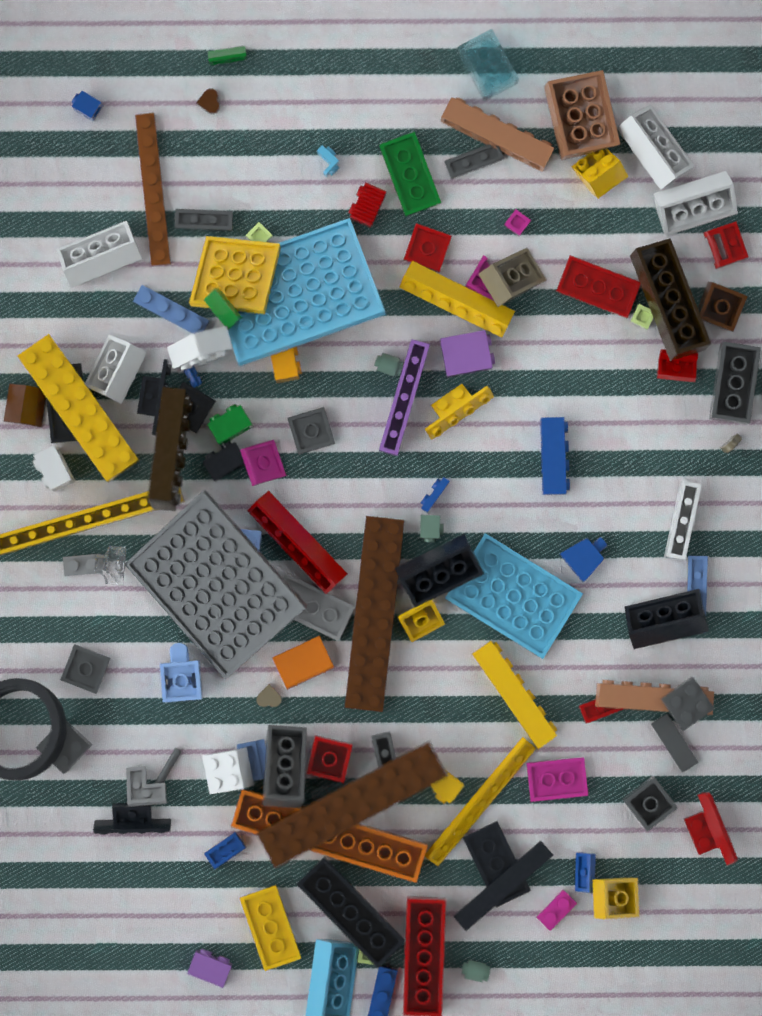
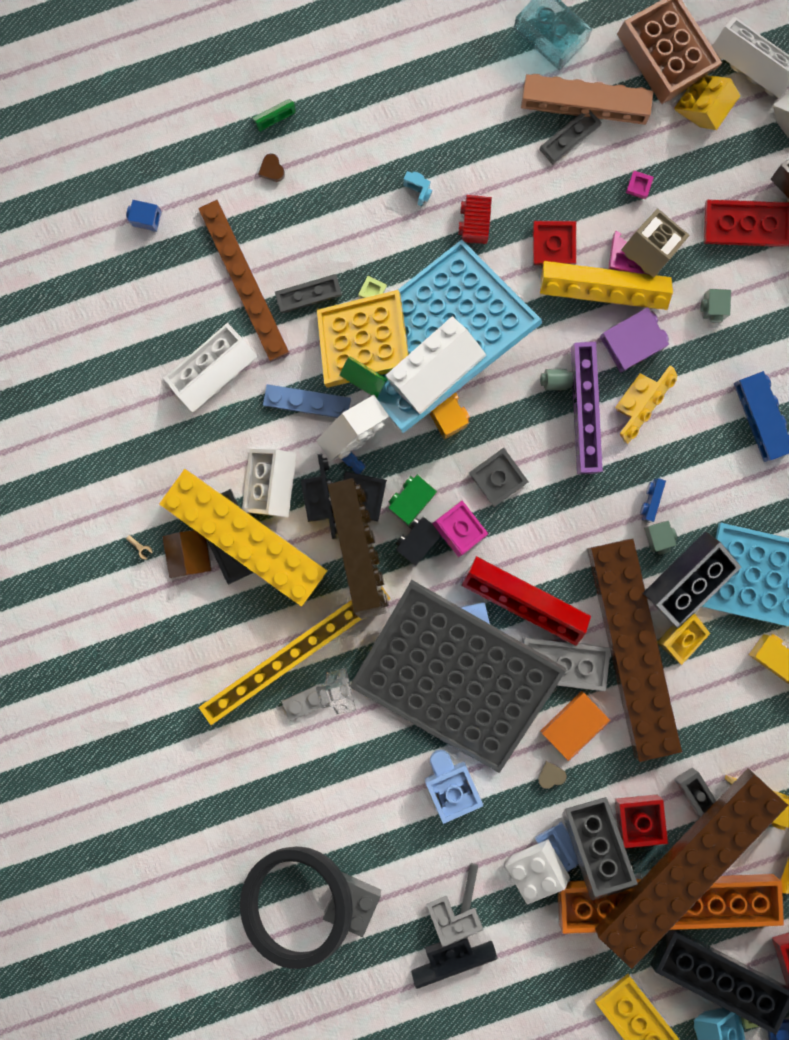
camera: 15 degrees left, 0 degrees up
(54, 468) = (239, 611): white brick -> none
(85, 668) = (346, 812): dark grey plate -> none
(225, 850) = (562, 956): blue plate -> none
(284, 319) = (436, 365): none -> white slope
(410, 174) = (509, 172): green plate -> none
(546, 347) = (716, 305): none -> sand green brick

